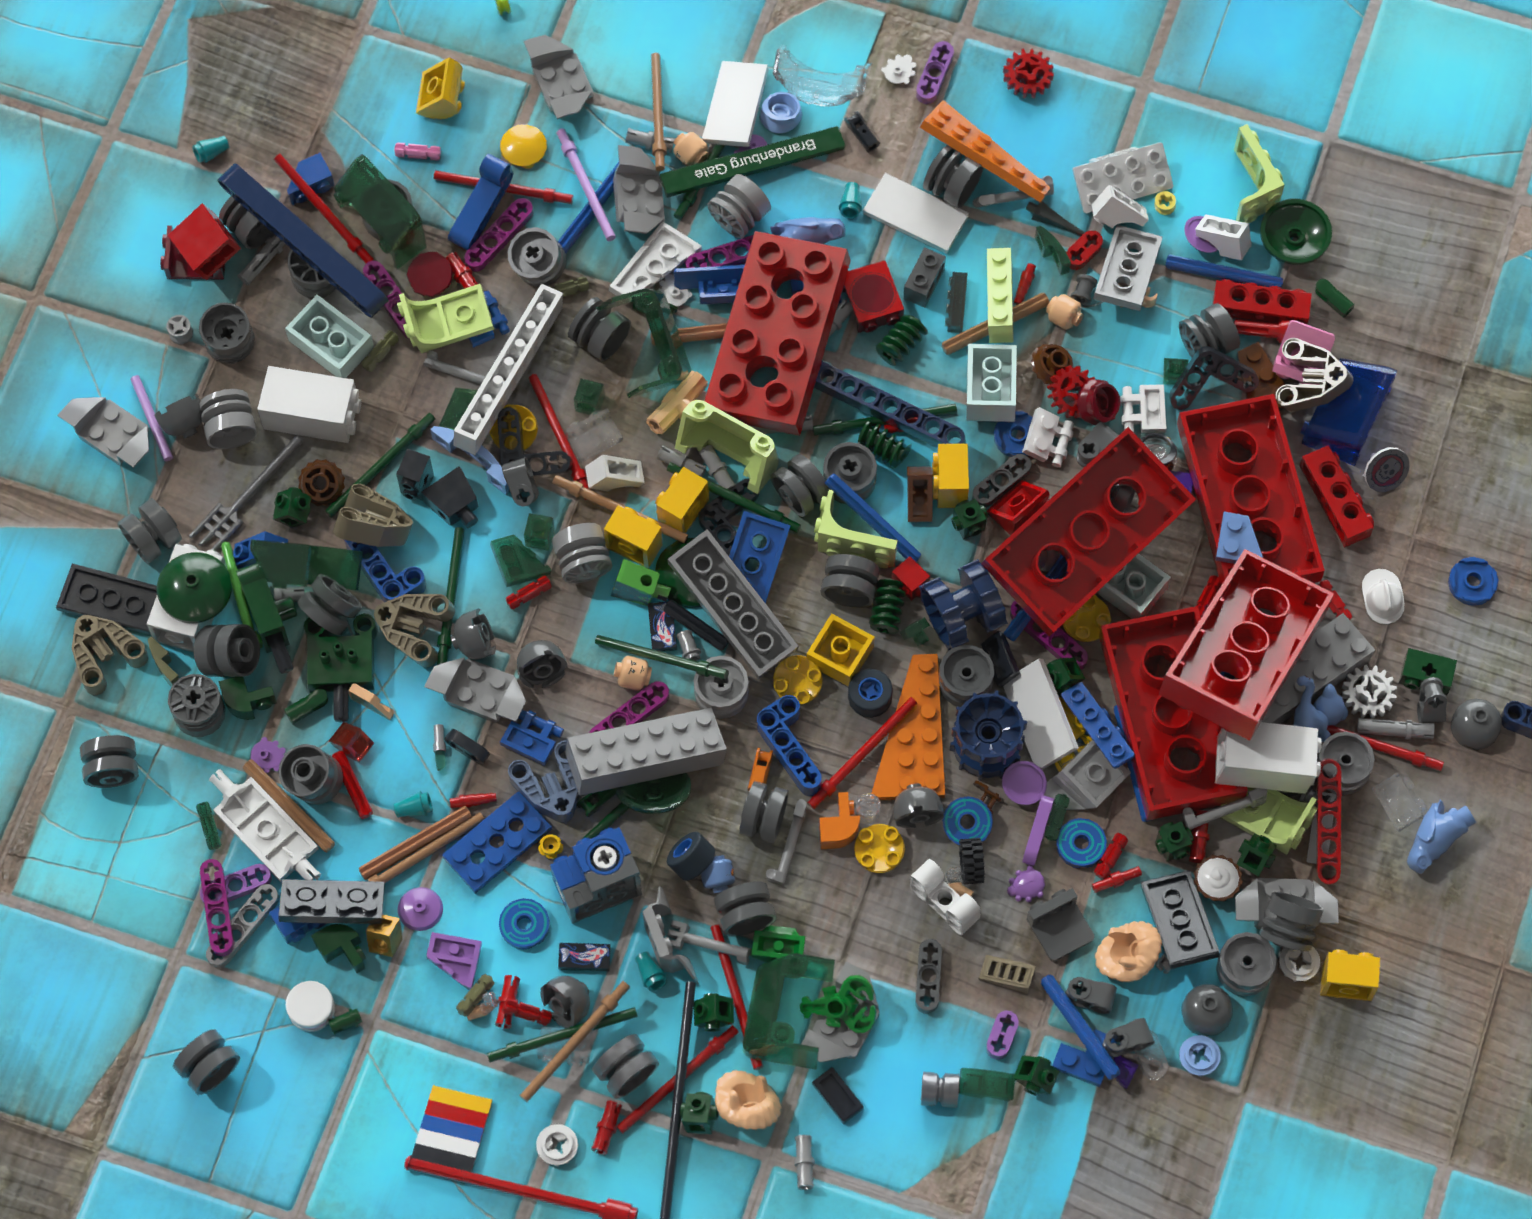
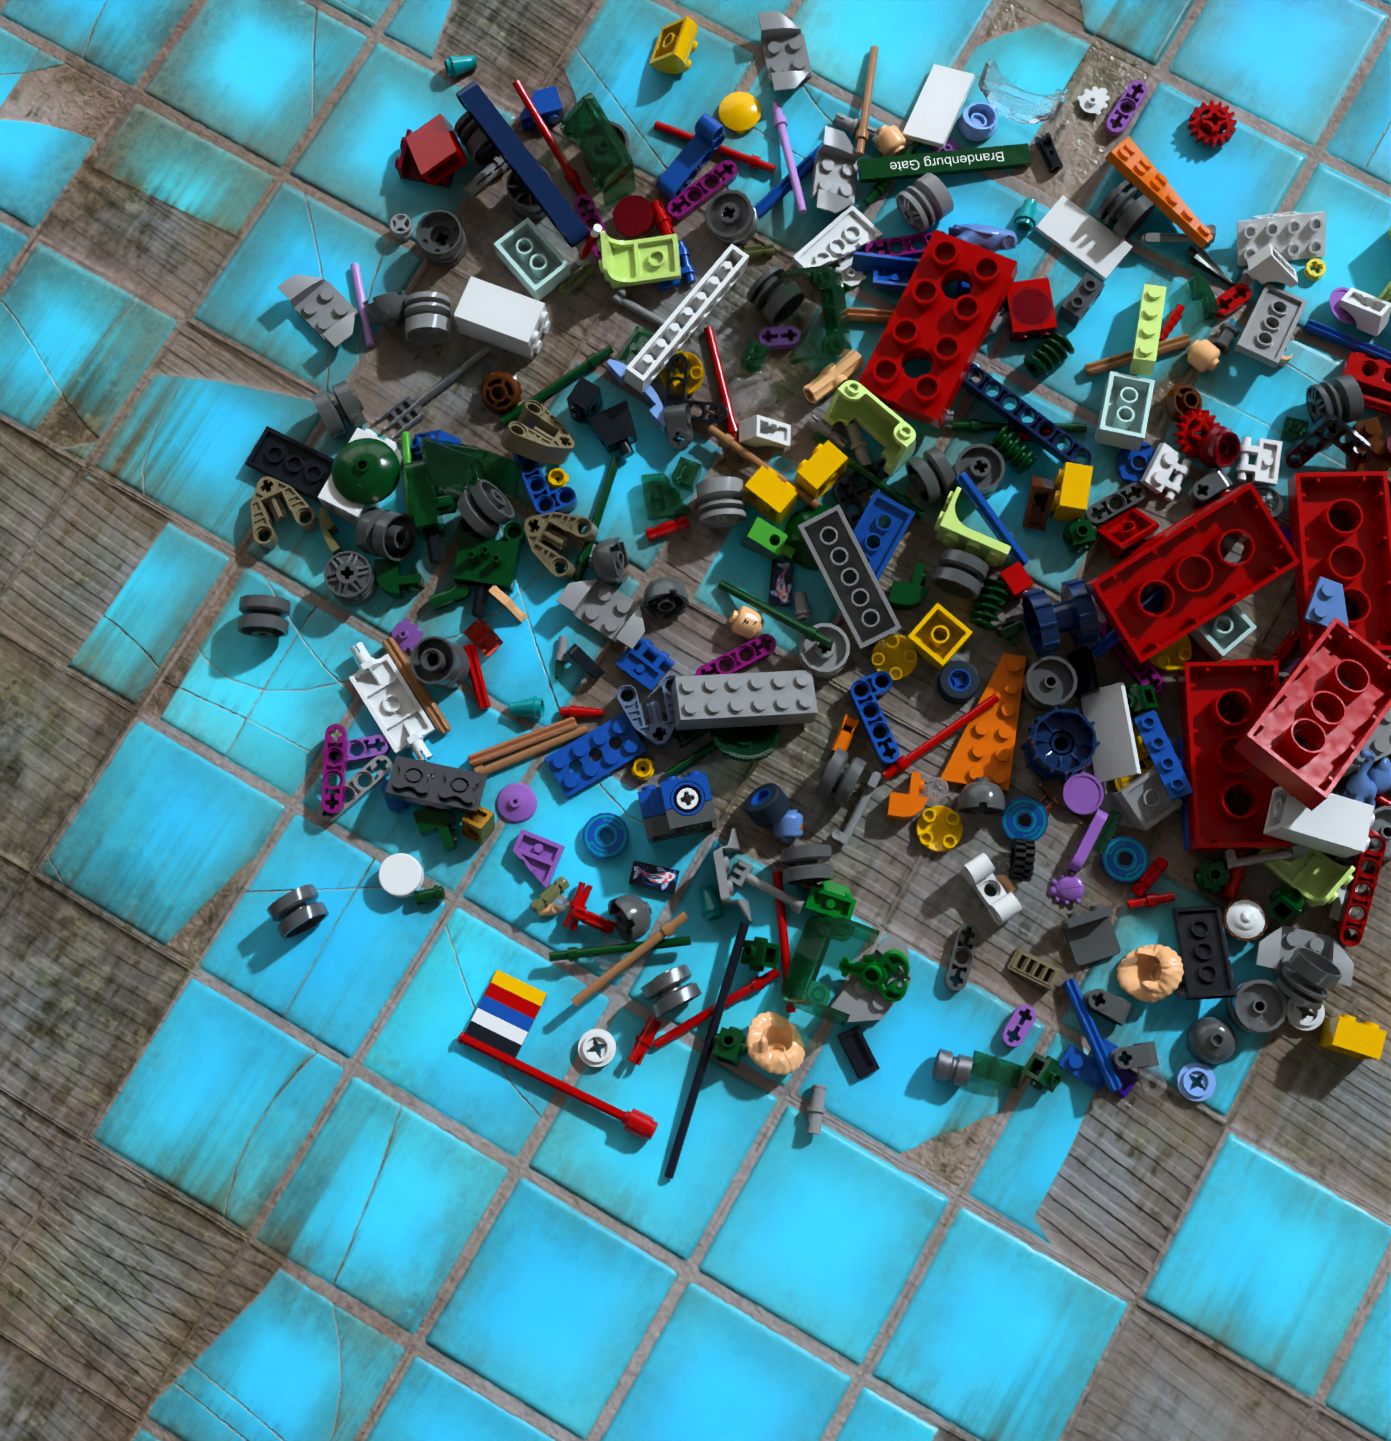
camera: 15 degrees right, 10 degrees up
(208, 825) = (342, 690): clear green axle -> none
(292, 507) = (470, 410): dark green brick -> none
(388, 311) = (591, 239): none -> bar
(399, 556) = (553, 474): none -> yellow plate
(417, 151) = (644, 100): bright pink axle -> none
(611, 372) = (779, 337): none -> medium lavender beam
(696, 625) = (811, 587): black axle -> none
(803, 613) = (909, 595): none -> dark green brick
(957, 302) = (1106, 327): clear smoke piece -> none

